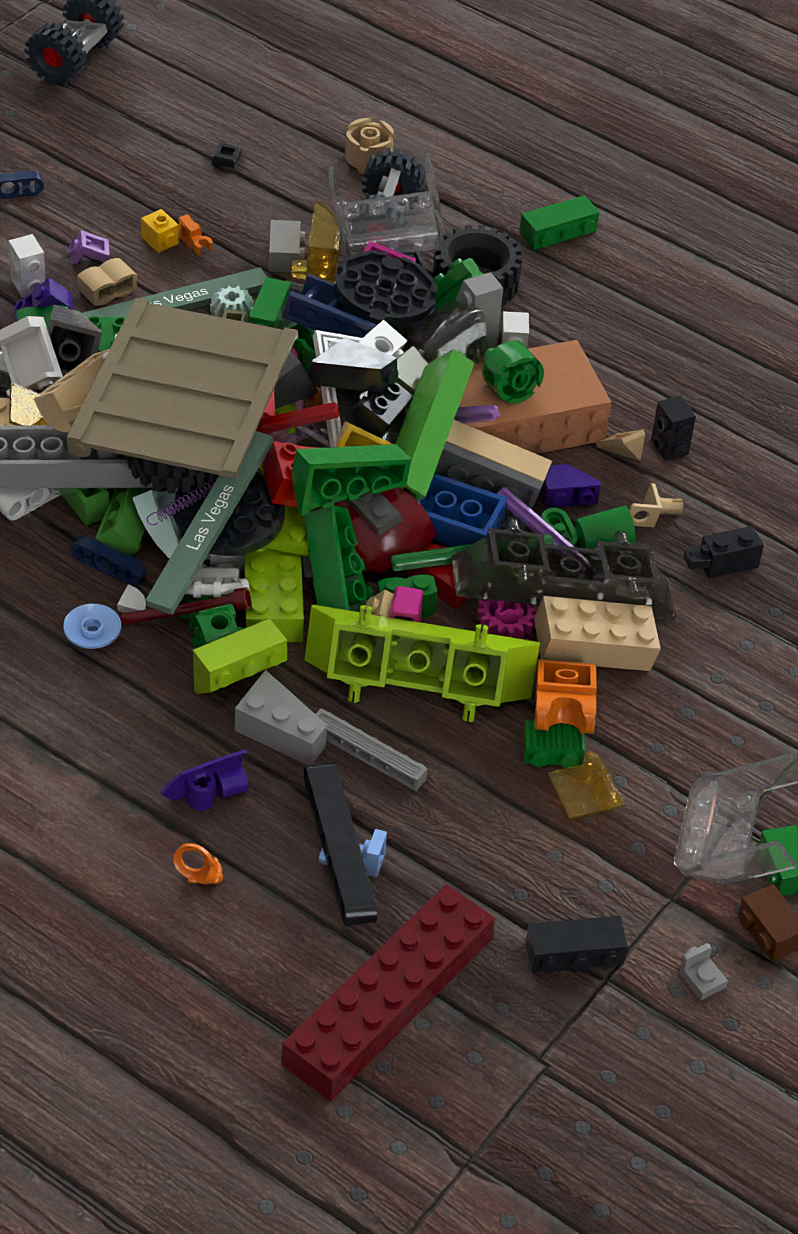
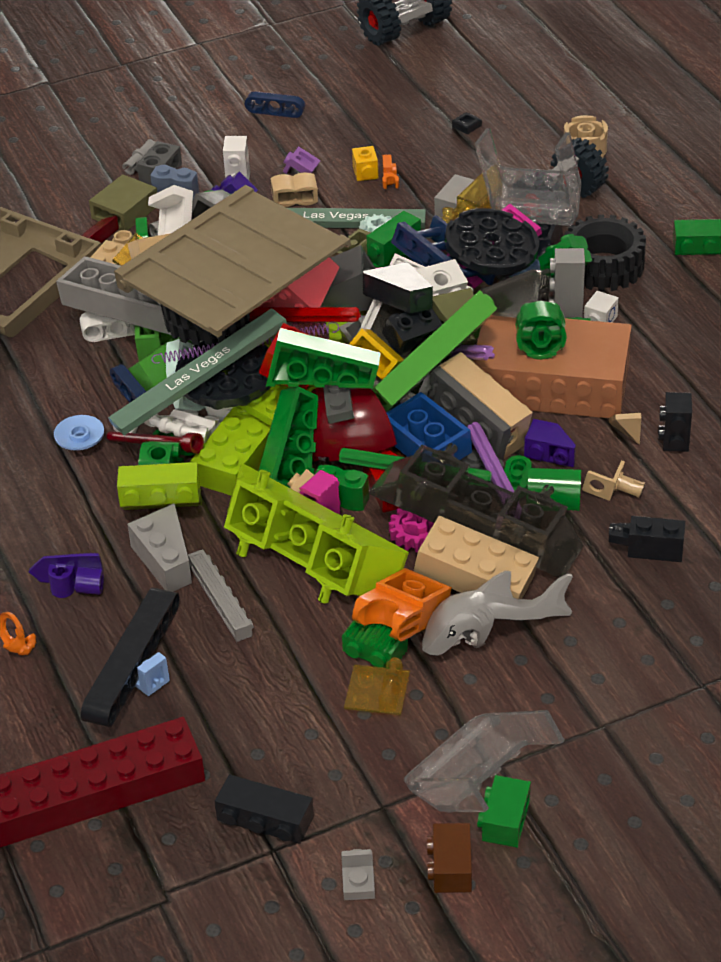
camera: 35 degrees right, 5 degrees down
(640, 679) = (478, 608): none -> light grey piece

